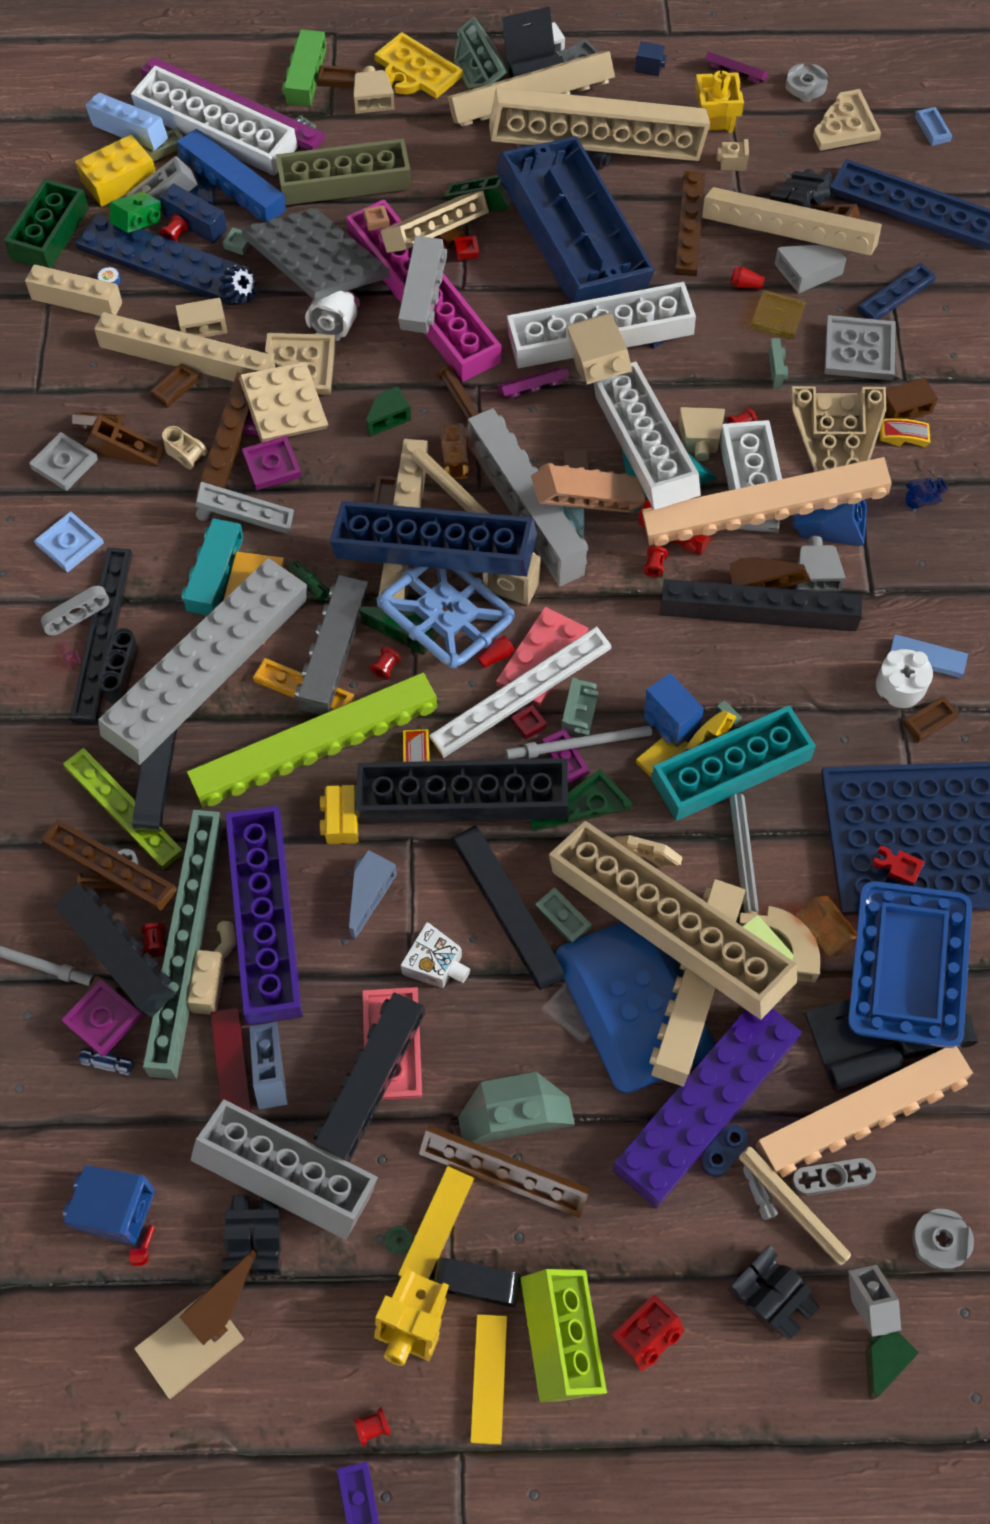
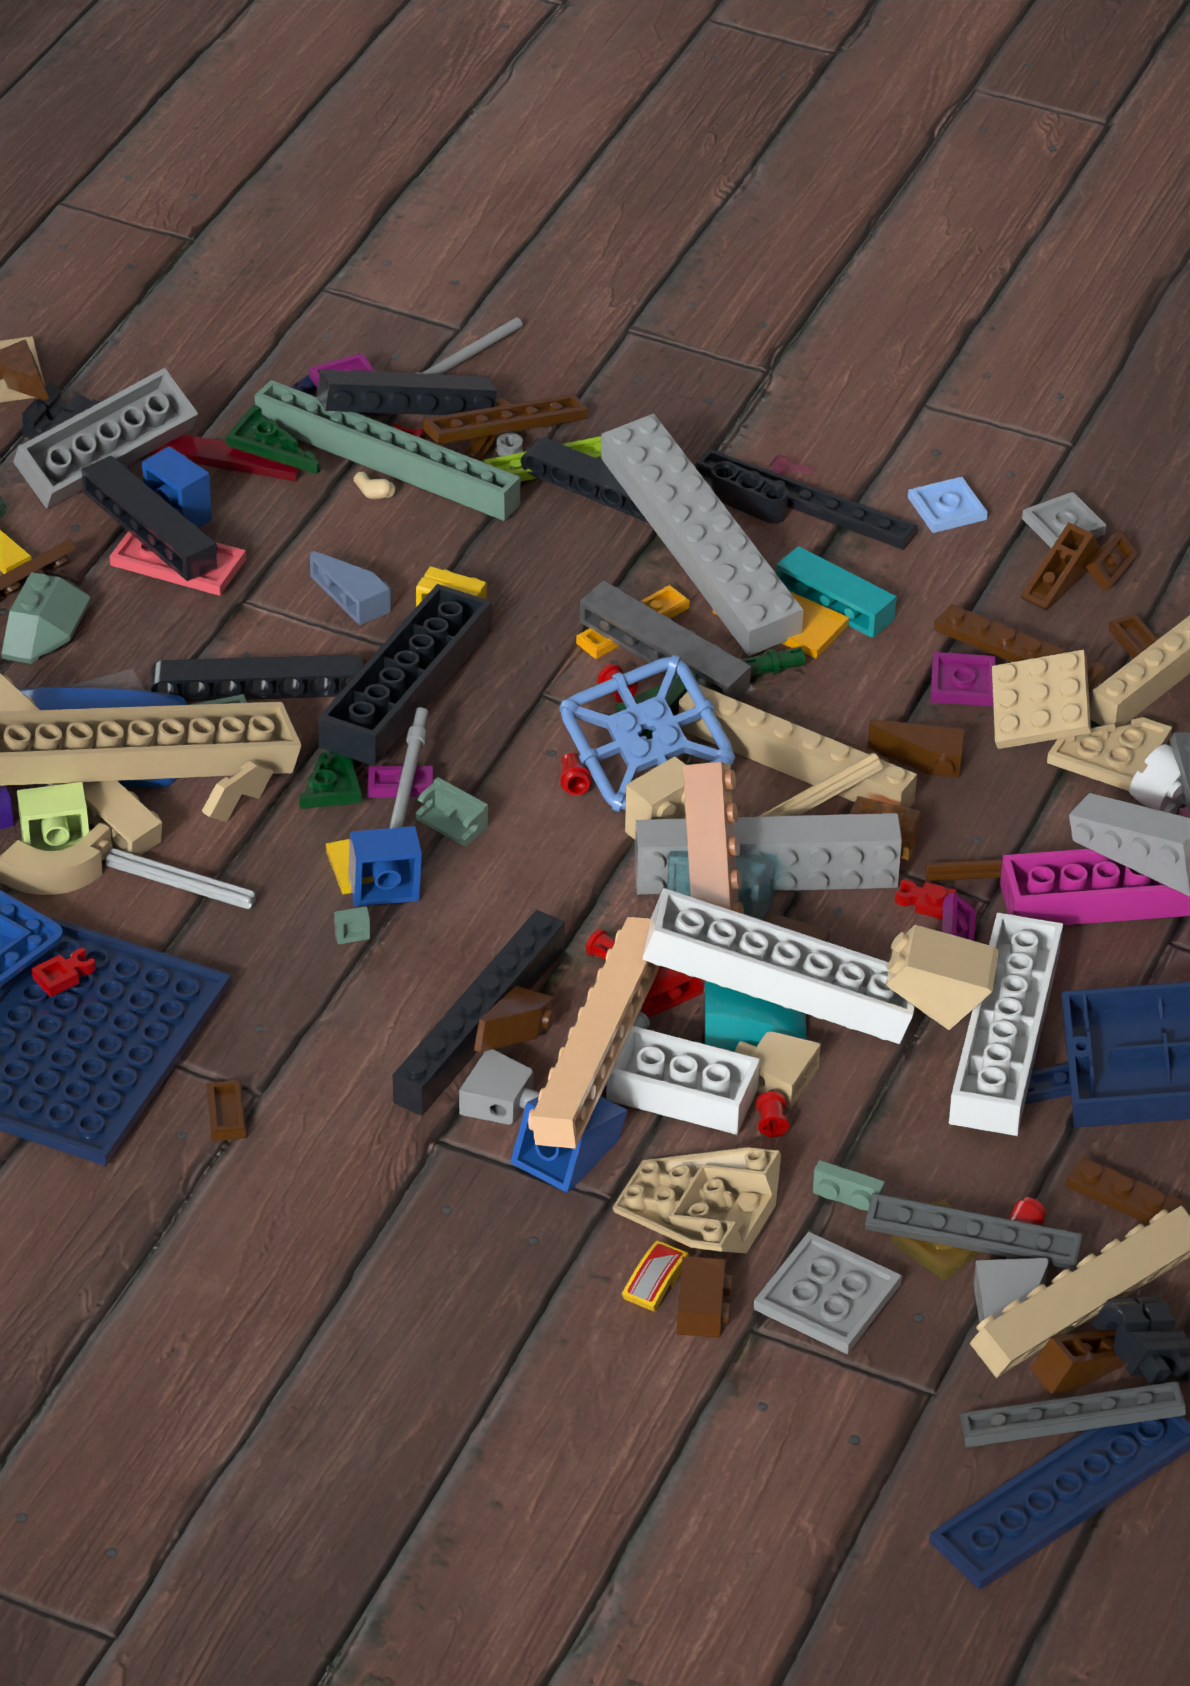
camera: 115 degrees right, 20 degrees down
(53, 621) = (839, 475): light grey beam -> none
(109, 1204) = (163, 342): blue slope -> none
(140, 1256) = (111, 361): red hand -> none
(183, 446) = (1030, 612): tan piece -> none
(205, 982) = (338, 455): tan brick -> none
(212, 1049) = (267, 440): none -> dark green wing
(242, 507) = (898, 626): light grey piece -> none
(263, 916) = (377, 506): dark purple brick -> none
(267, 1066) = (227, 472): sand blue slope -> none
(312, 740) = (555, 604): lime brick -> none
(320, 1074) = (180, 484): none -> blue brick
(358, 455) = (922, 747): none -> reddish brown slope
(388, 411) = (985, 795): dark green slope -> none
(416, 745) = (498, 676): slope -> none
(434, 538) = (725, 713): dark blue brick -> none
(434, 959) = (242, 609): white torso -> none
(501, 406) = (927, 900): none -> red plate
(520, 692) = (502, 767): white tile -> none
(529, 722) = (463, 768): dark red plate -> none
(545, 638) = (545, 814): coral plate -> none
(717, 725) = (335, 888): yellow slope -> none
(732, 763) = (288, 898): teal brick -> none
(775, 292) = (972, 1231): none -> dark grey tile
(827, 925) = (63, 881): clear orange brick -> none
(873, 210) = (1072, 1414): none -> dark grey tile
(896, 292) = (909, 1389): dark blue tile -> none
(904, 677) = (290, 1094): white brick -> none
(925, 492) = (538, 1233): clear blue hips -> none
(941, 659) = (309, 1145): medium blue tile -> none

